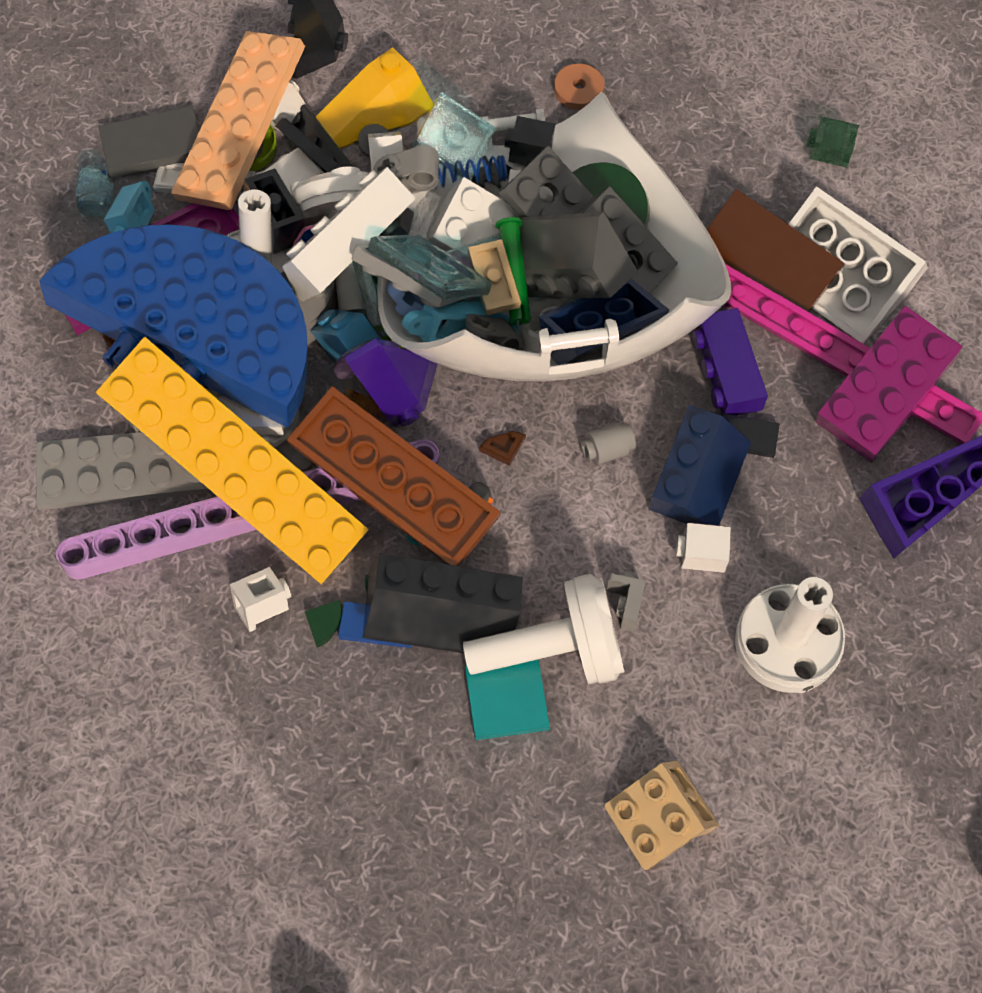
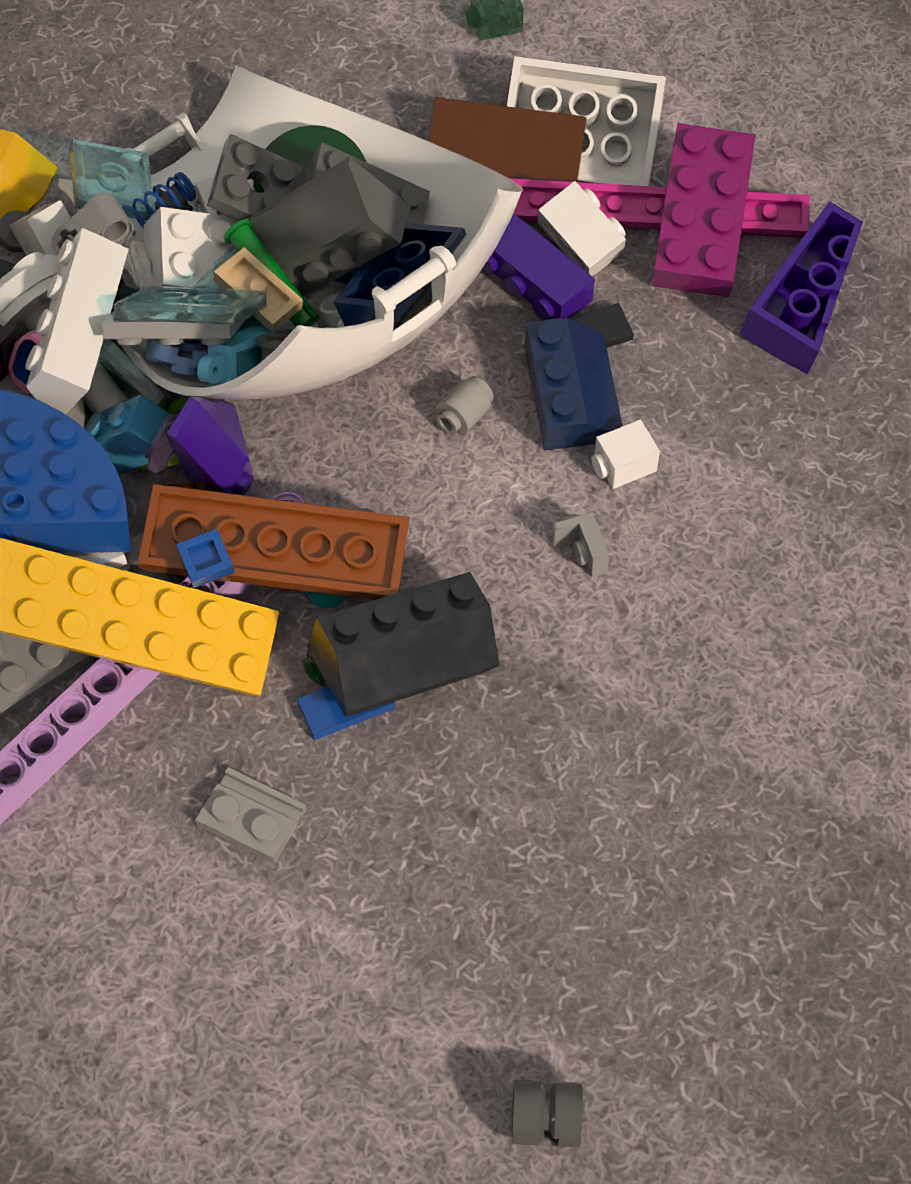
camera: 30 degrees left, 5 degrees down
(258, 670) = (251, 815): none -> light grey plate
(259, 597) = (205, 741): white brick -> none
(324, 621) = (288, 730): dark green tile -> none
(331, 463) = (205, 558): none -> blue plate
(503, 446) = (357, 465): reddish brown tile -> none
(507, 701) = (524, 701): teal tile -> none
(528, 139) = (194, 148): black brick -> none
(578, 75) = (199, 64): nougat piece -> none
(587, 630) = (568, 581): white piece -> none
(660, 813) = (746, 727): tan bracket -> none
(785, 351) = (582, 228): none -> white brick
(791, 636) = (763, 490): white piece -> none

